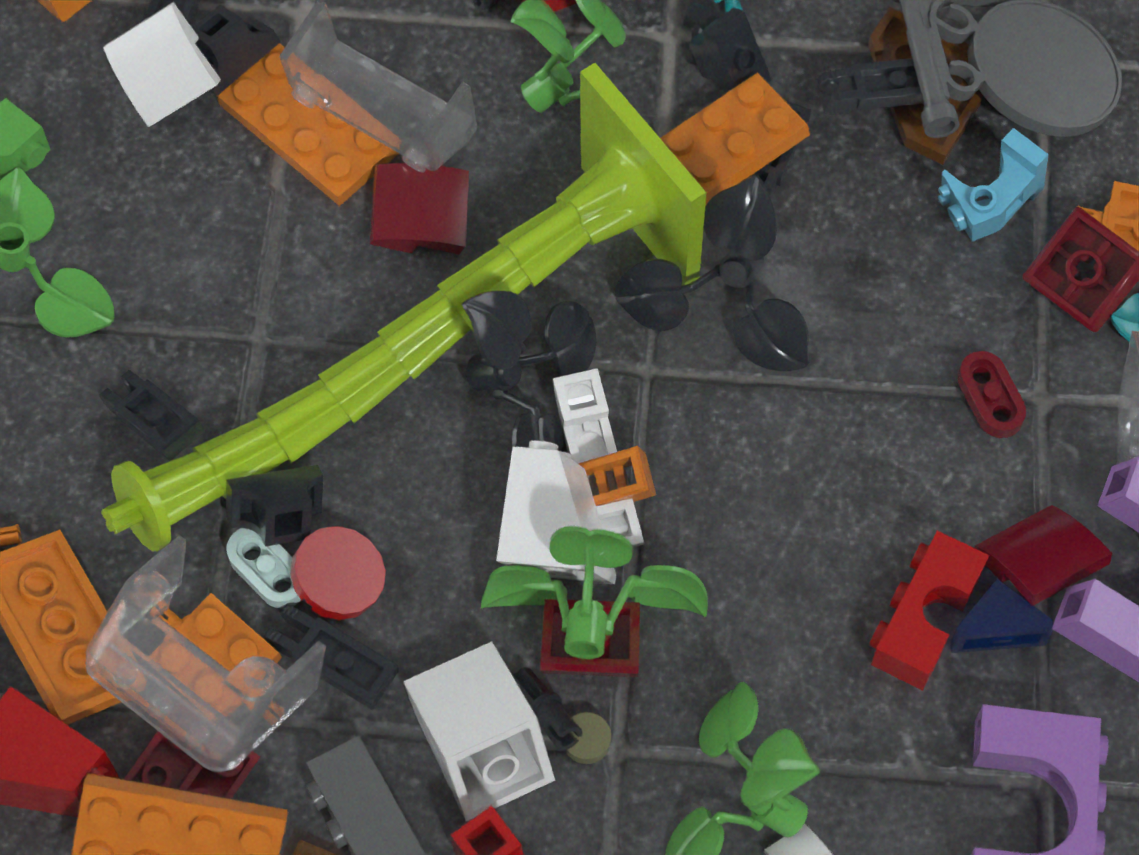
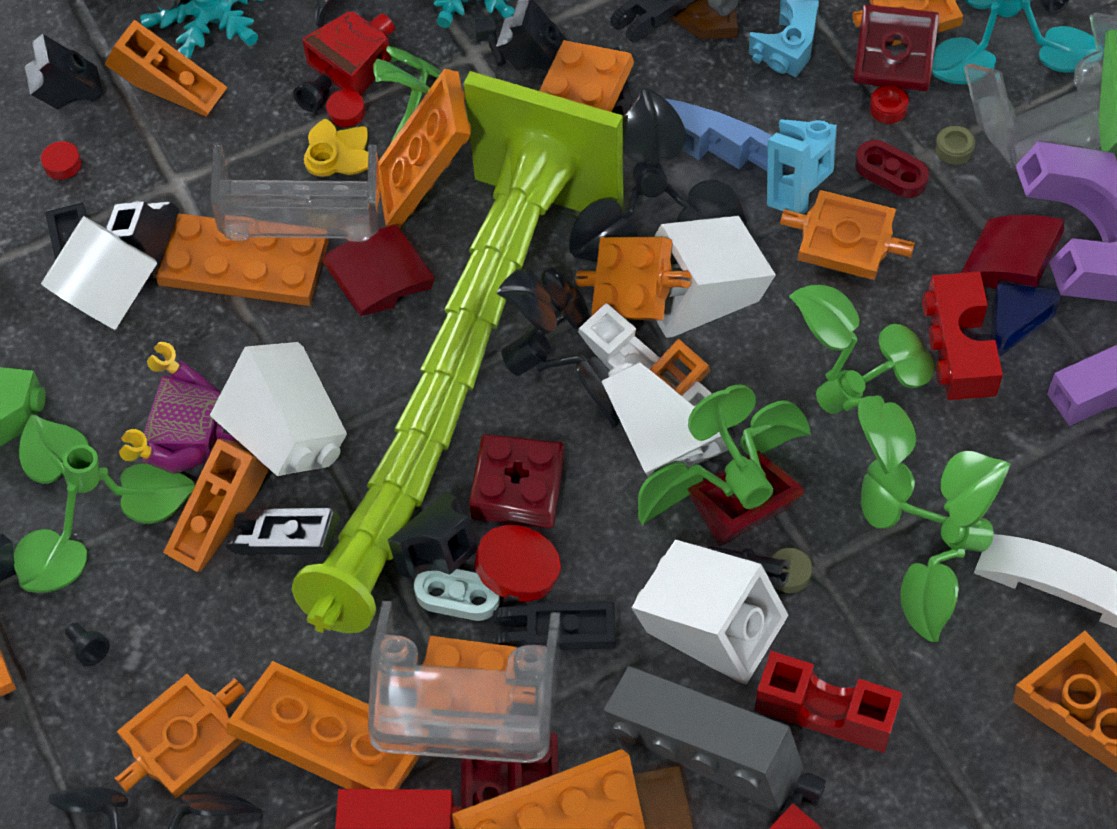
camera: 30 degrees left, 5 degrees down
(131, 339) = (223, 489): none -> orange slope
(142, 254) = (179, 423): none -> magenta torso
(223, 296) = (280, 409): none -> white slope
(397, 519) = (537, 494): none -> dark red brick
(474, 62) = (341, 150): none -> yellow plate
(501, 28) = (345, 108): none -> red tile
(528, 112) = (423, 148): none -> orange plate
(640, 358) = (633, 276): none -> orange plate
(719, 391) = (724, 270): none -> white slope
(831, 246) = (722, 136): none -> medium blue slope
(856, 598) = (885, 425): none -> bright green plant
(894, 436) = (847, 234): none -> orange plate
(900, 342) = (810, 150): none -> medium azure tile
(1044, 324) = (888, 104): none -> red tile
(1079, 406) = (955, 145): none -> olive tile

